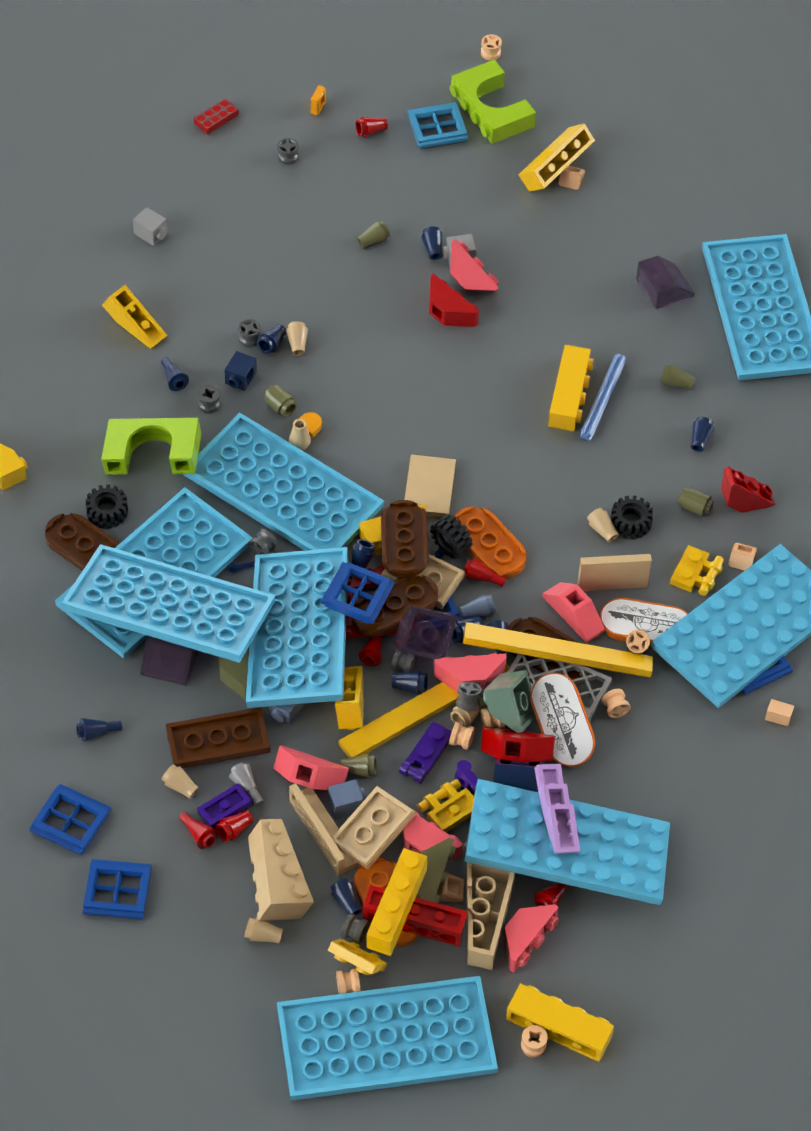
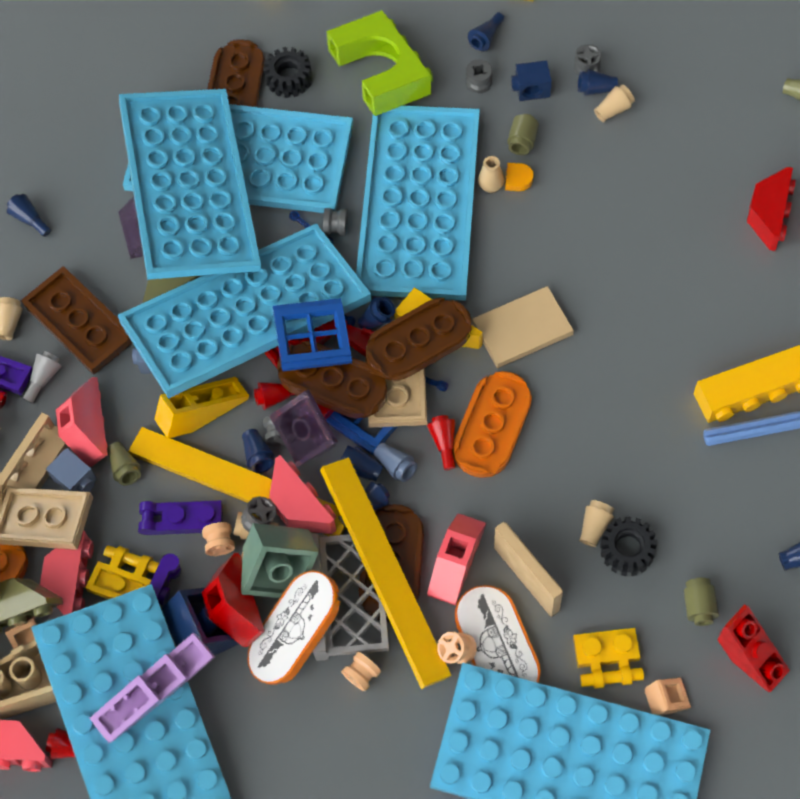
camera: 65 degrees right, 10 degrees up
(451, 536) = (460, 381): black tyre -> none

